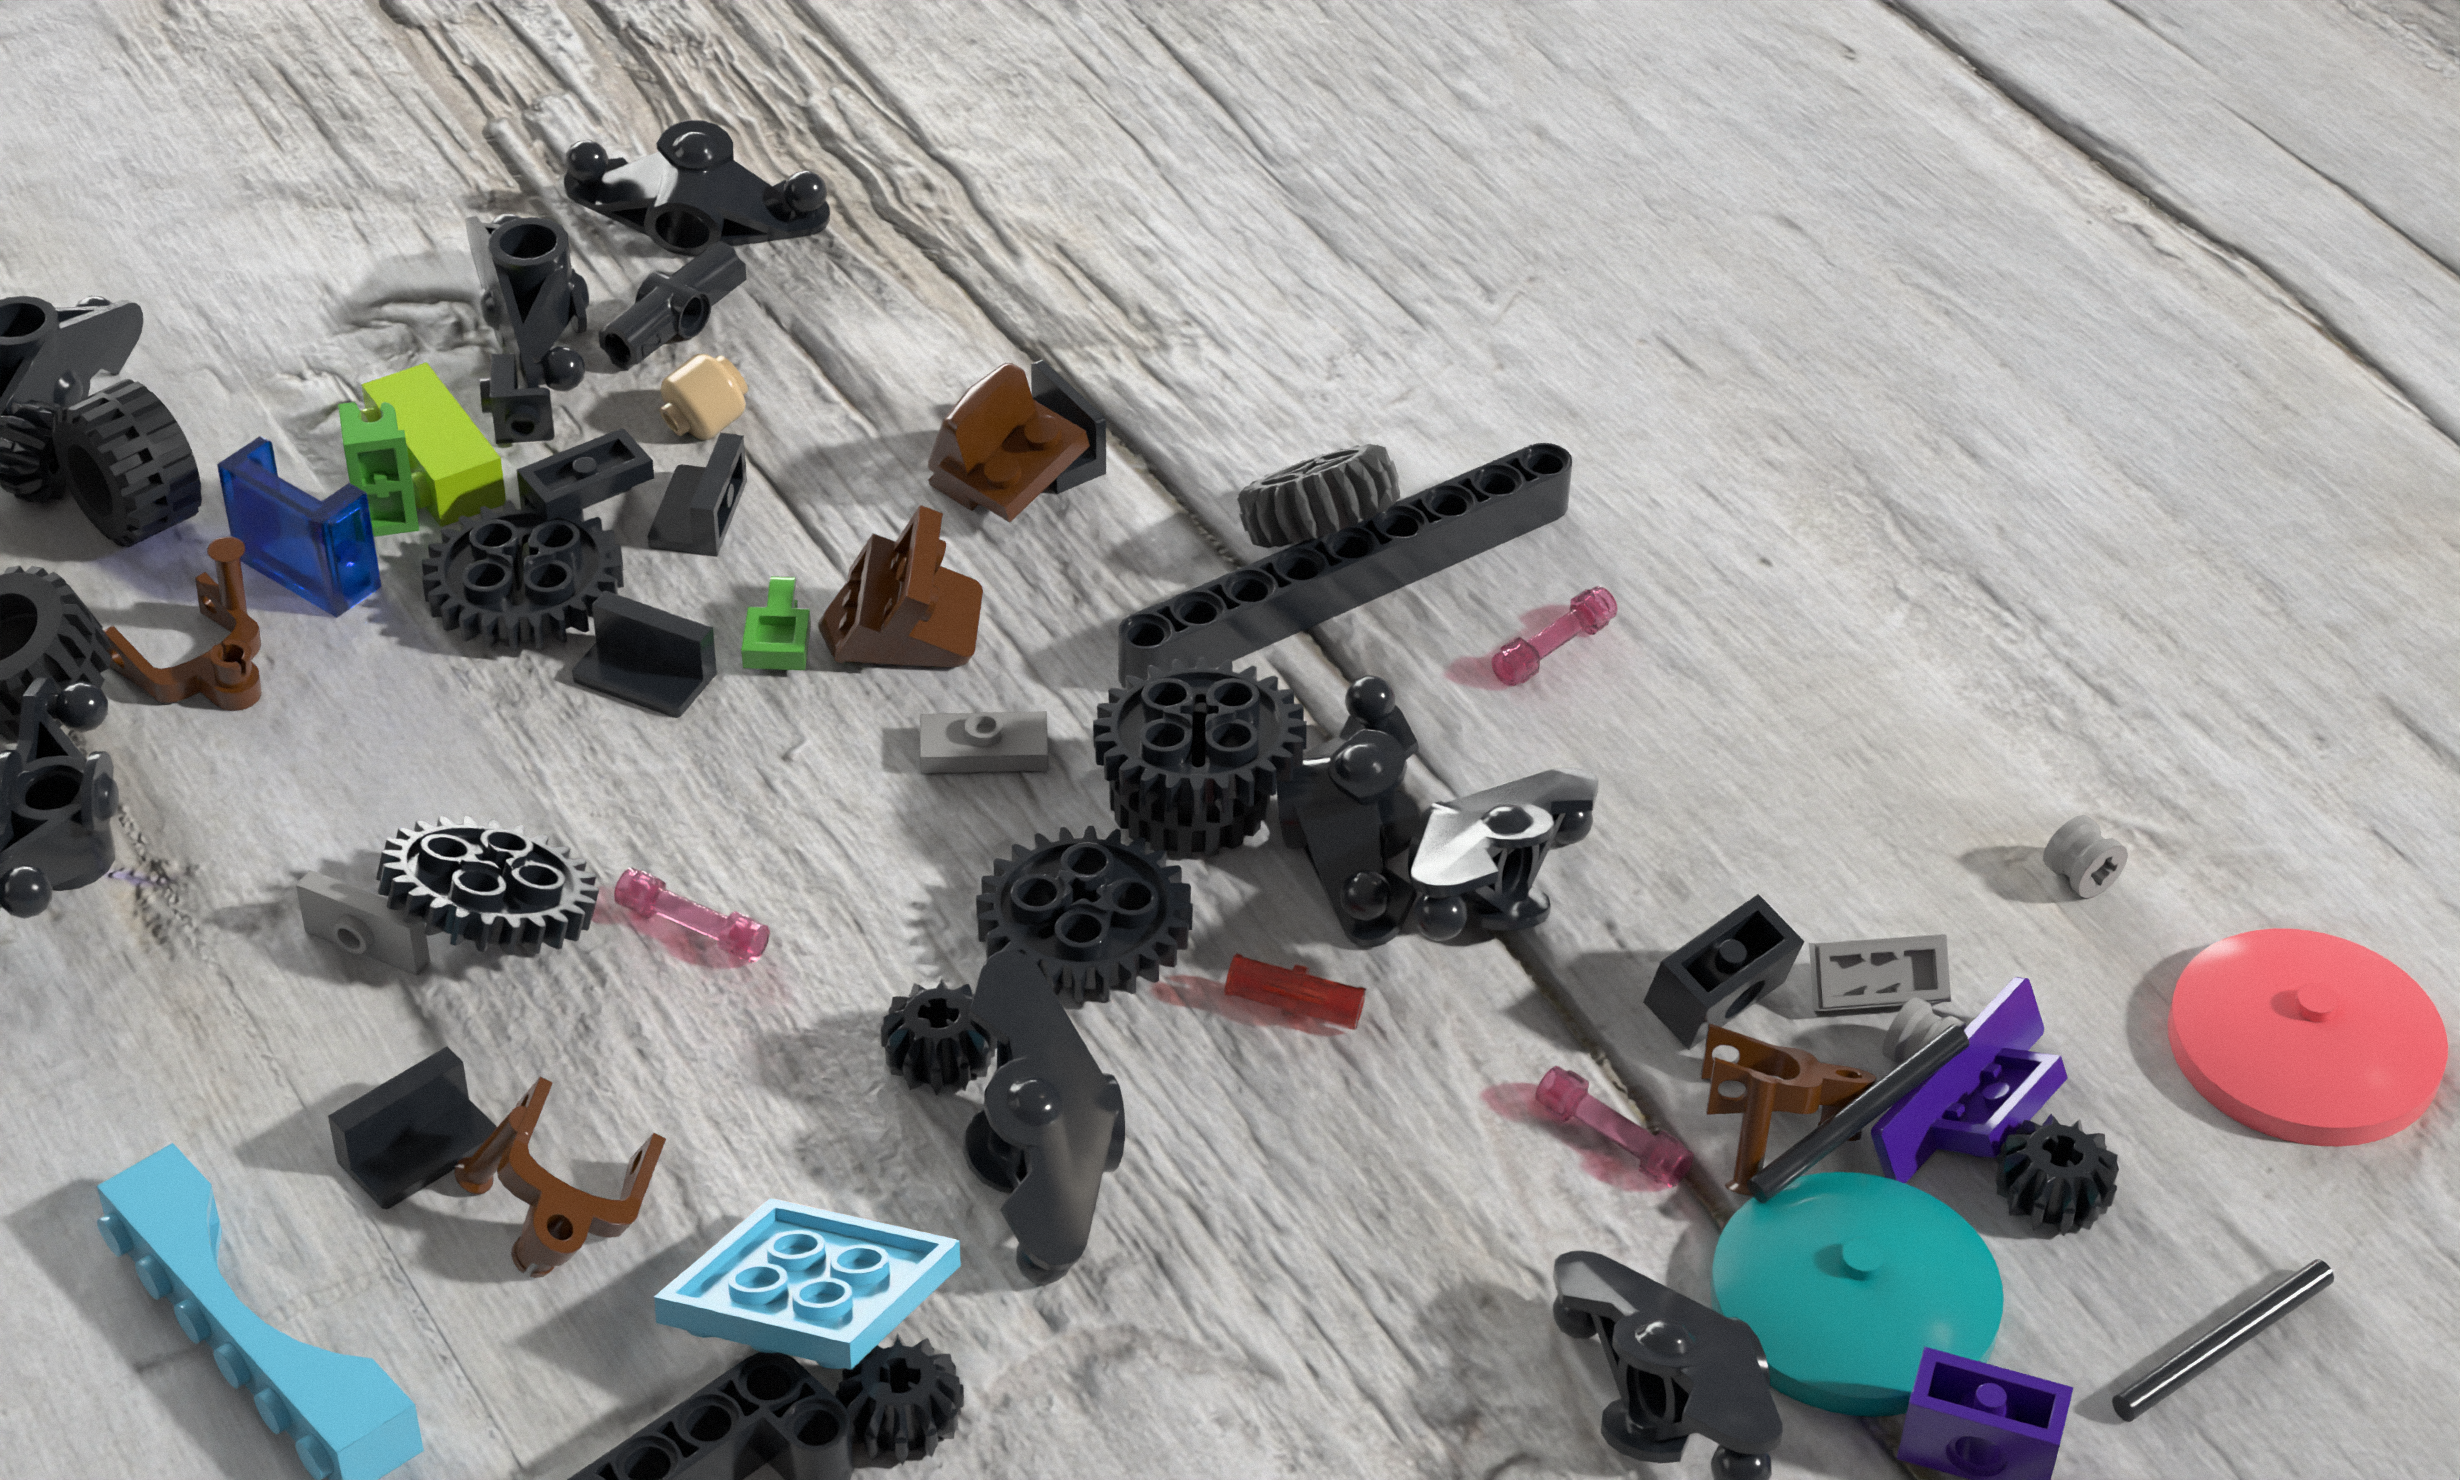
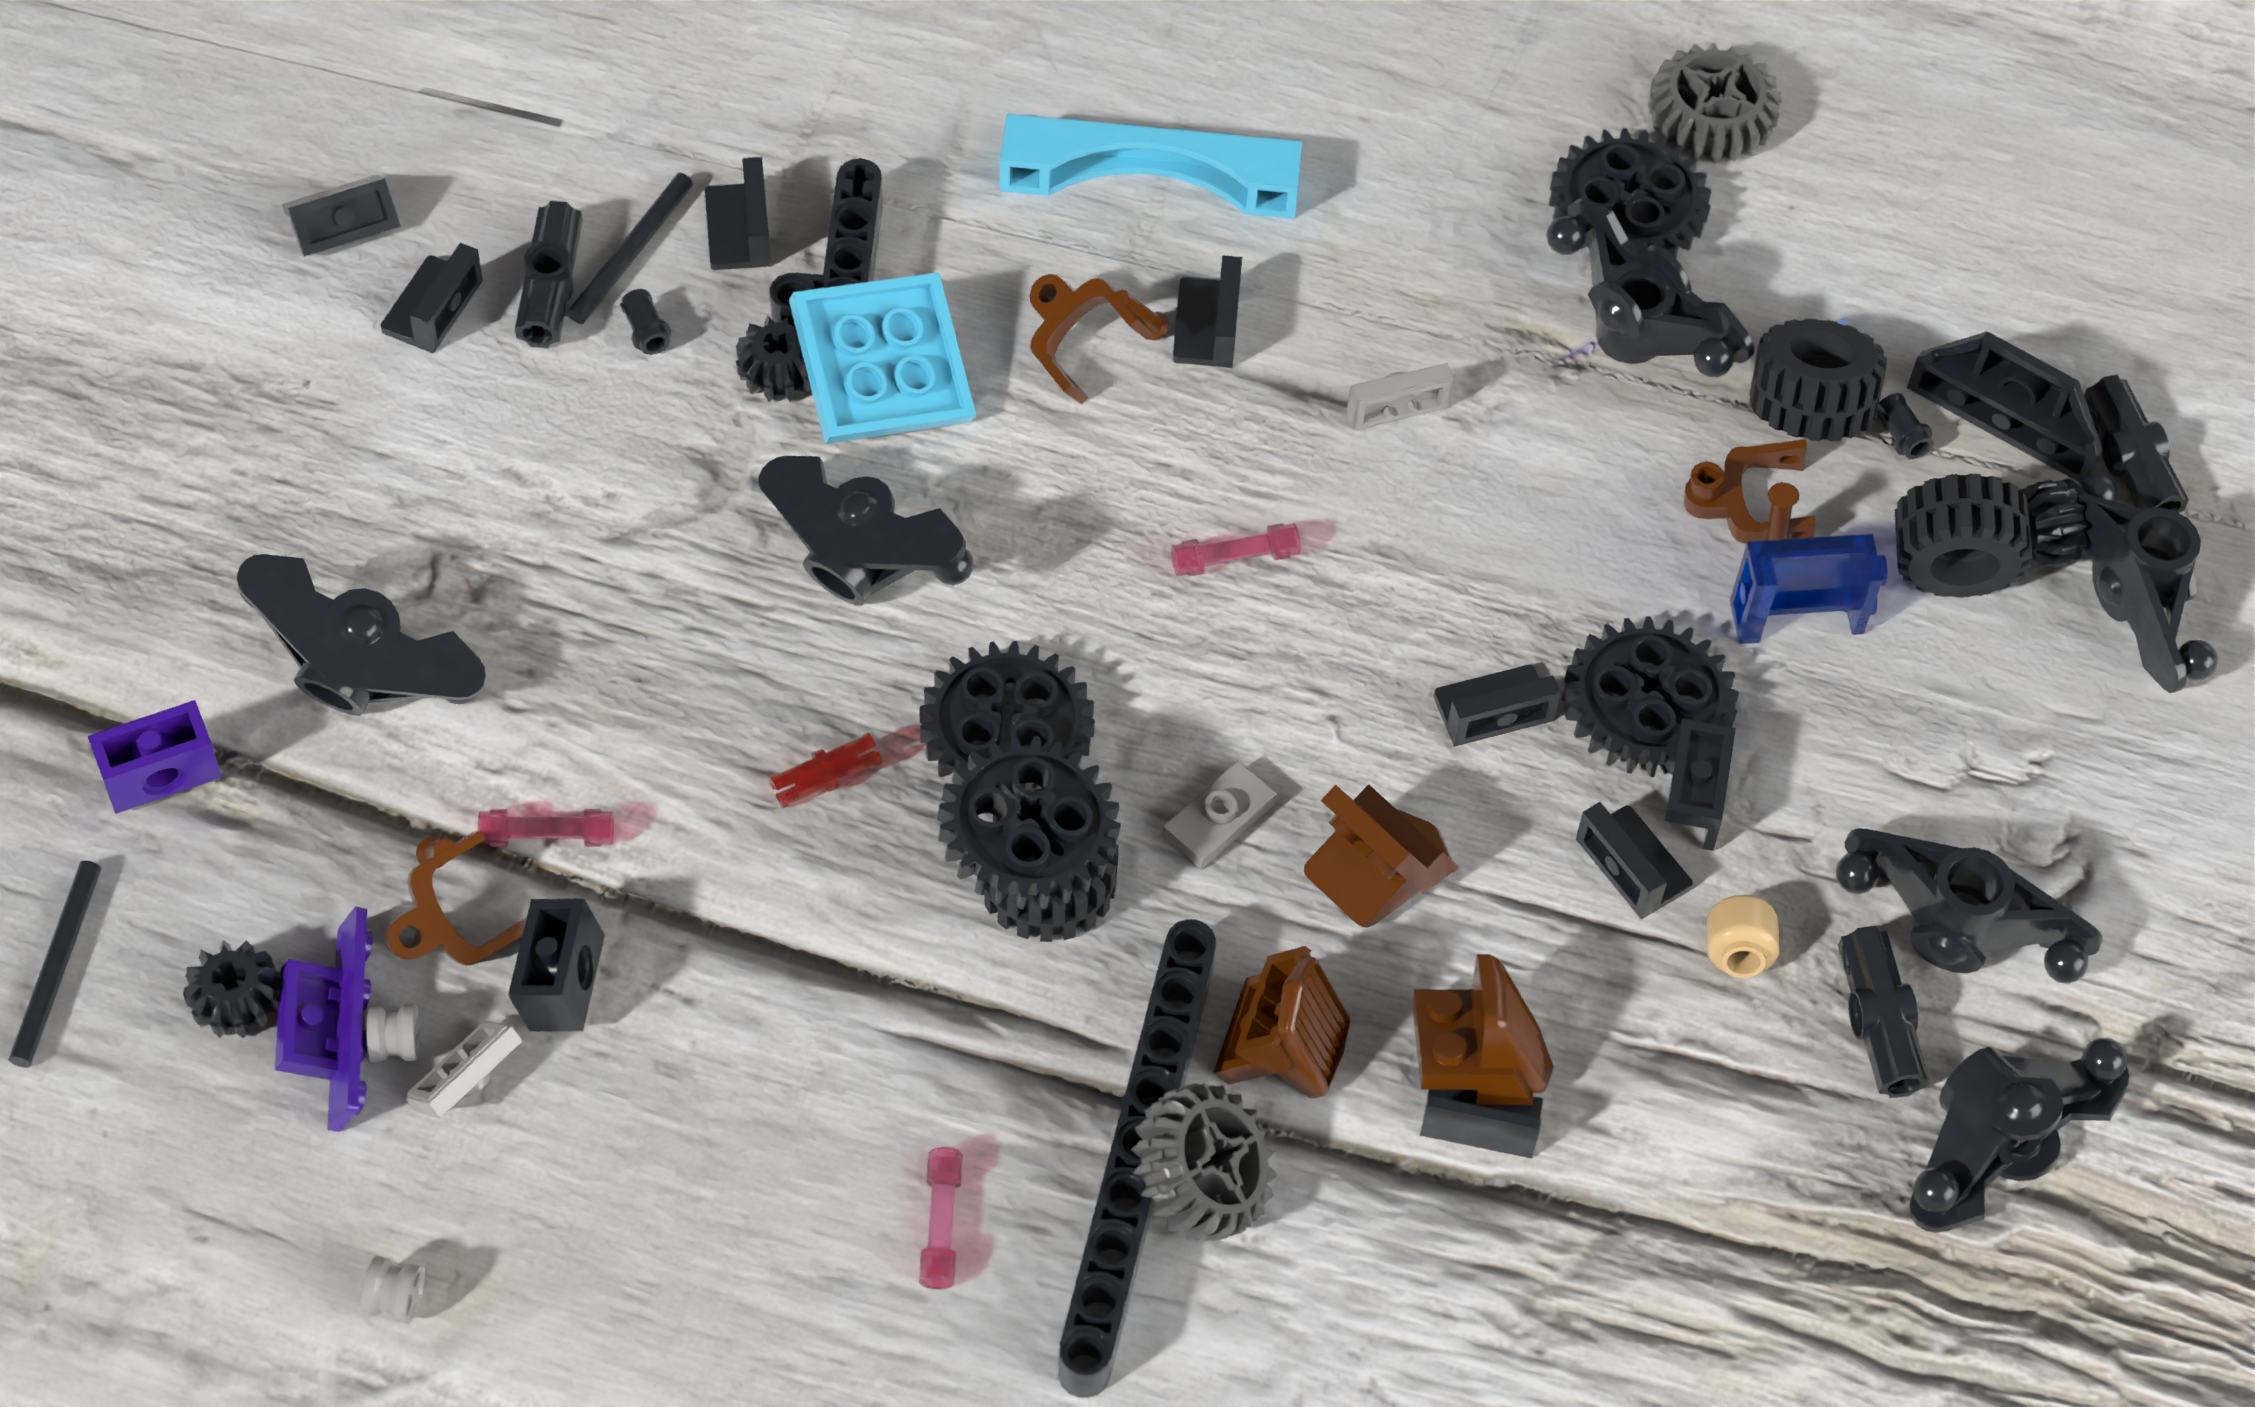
camera: 135 degrees right, 15 degrees up
(381, 467) = (1829, 664): bright green hinge -> none
(447, 454) = (1850, 748): lime brick -> none
(487, 885) = (1362, 408): black gear -> none
(516, 412) = (1846, 814): black bracket -> none
(777, 633) = (1442, 782): bright green plate -> none
(934, 1039) = (1002, 573): black gear -> none
(1143, 538) = (1286, 1026): none -> reddish brown piece
(1353, 817) = (919, 926): black piece -> none
(1492, 848) = (784, 931): black piece -> none
(1852, 1284) = (308, 828): teal dish -> none
(1857, 1114) = (381, 913): black bar -> none
(2307, 1037) = (139, 1263): coral dish -> none

